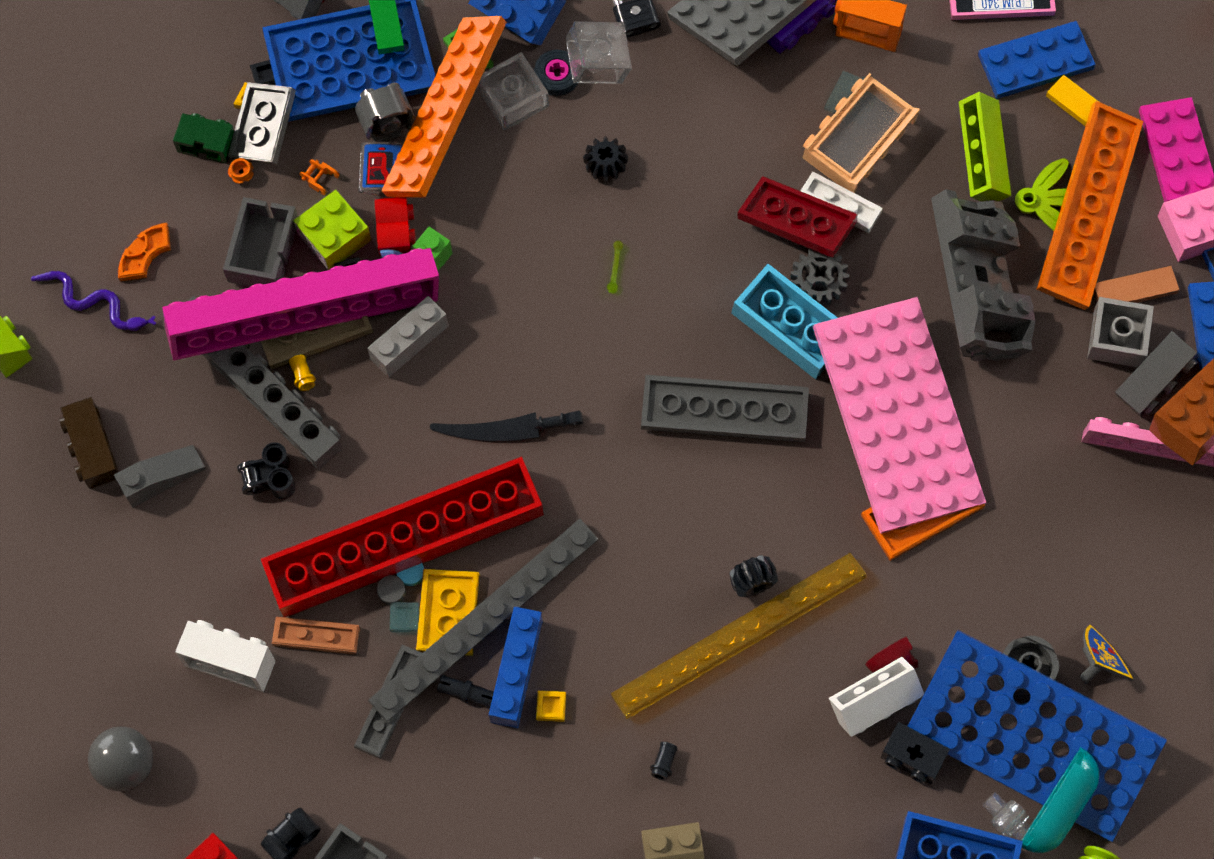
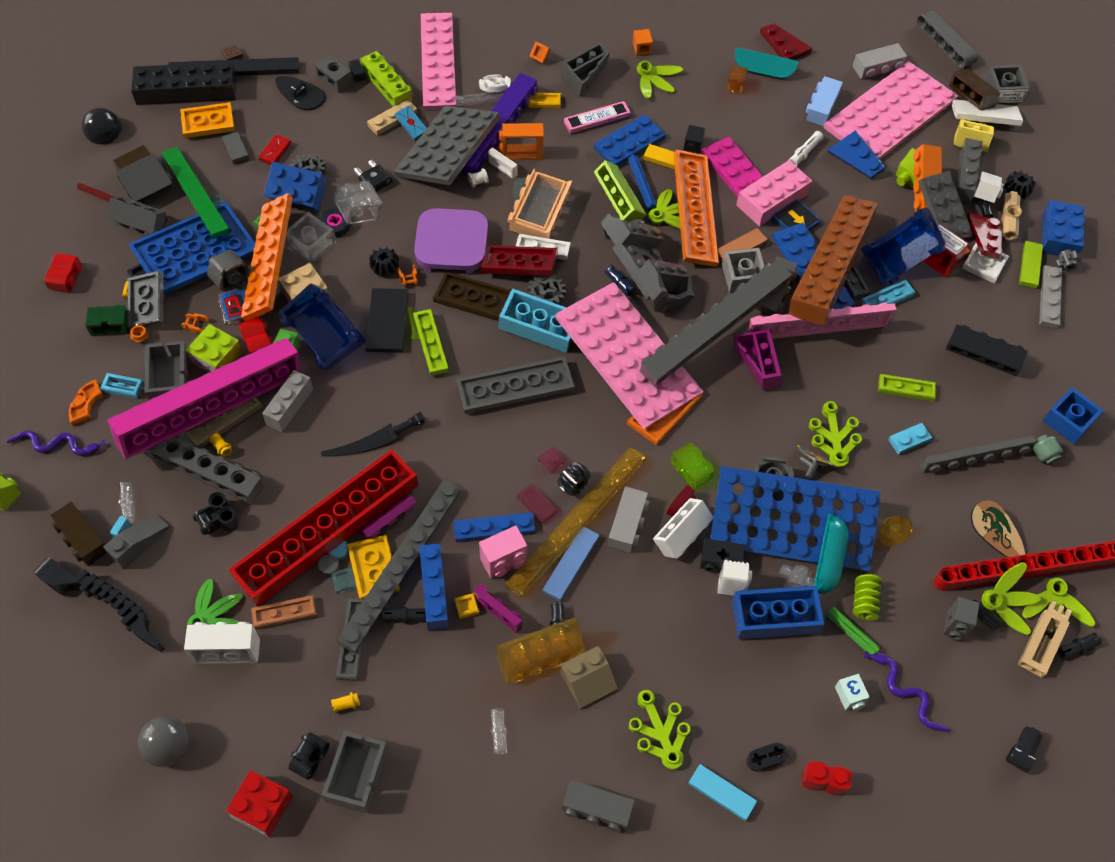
camera: 25 degrees left, 10 degrees down
(53, 502) = (132, 615): none -> black piece
(143, 451) = (121, 525): none -> medium azure tile
(160, 417) = (126, 501): none -> clear pin
(164, 44) = (63, 272): none -> red brick
(216, 253) = (120, 388): none -> medium azure tile
(220, 608) = (210, 614): none -> bright green plant
(356, 783) = (345, 702): none -> yellow pin
(481, 170) = (298, 280): none -> tan brick
(488, 548) = (388, 517): none -> magenta plate
(489, 239) = (322, 325): none -> clear blue windscreen
(581, 251) = (387, 320): none -> black tile
(589, 721) = (498, 609): none -> magenta plate
(621, 652) = (503, 552): none -> bright pink brick
(622, 802) = (540, 650): none -> clear yellow slope
(623, 192) = (414, 275): none -> orange piece
(624, 608) = (489, 526): none -> blue plate
(629, 306) = (430, 342): none -> lime plate
(693, 593) = (536, 503): none -> clear pink tile
(708, 693) = (570, 564): none -> medium blue tile
(712, 151) = (451, 240): none -> medium lavender tile
(712, 249) = (471, 295): none -> dark brown tile
(736, 536) = (551, 459): none -> clear pink plate
(786, 59) = (478, 178): none -> white bush
(808, 658) = (628, 519): none -> light grey brick
(830, 45) = (503, 163): none -> white tile
(916, 791) = (734, 577): none -> white brick
(926, 609) = (692, 465): none -> clear neon green brick
(932, 290) = (619, 280): none -> dark blue pin
(1028, 136) = (642, 182): none -> blue axle
(1039, 408) = (714, 323): none -> dark grey brick
(1088, 476) = (759, 356): none -> magenta wedge
(1134, 87) = (694, 139): none -> black brick
(1148, 631) = (834, 435): none -> lime plant
(1172, 797) = (895, 530): none -> clear yellow piece

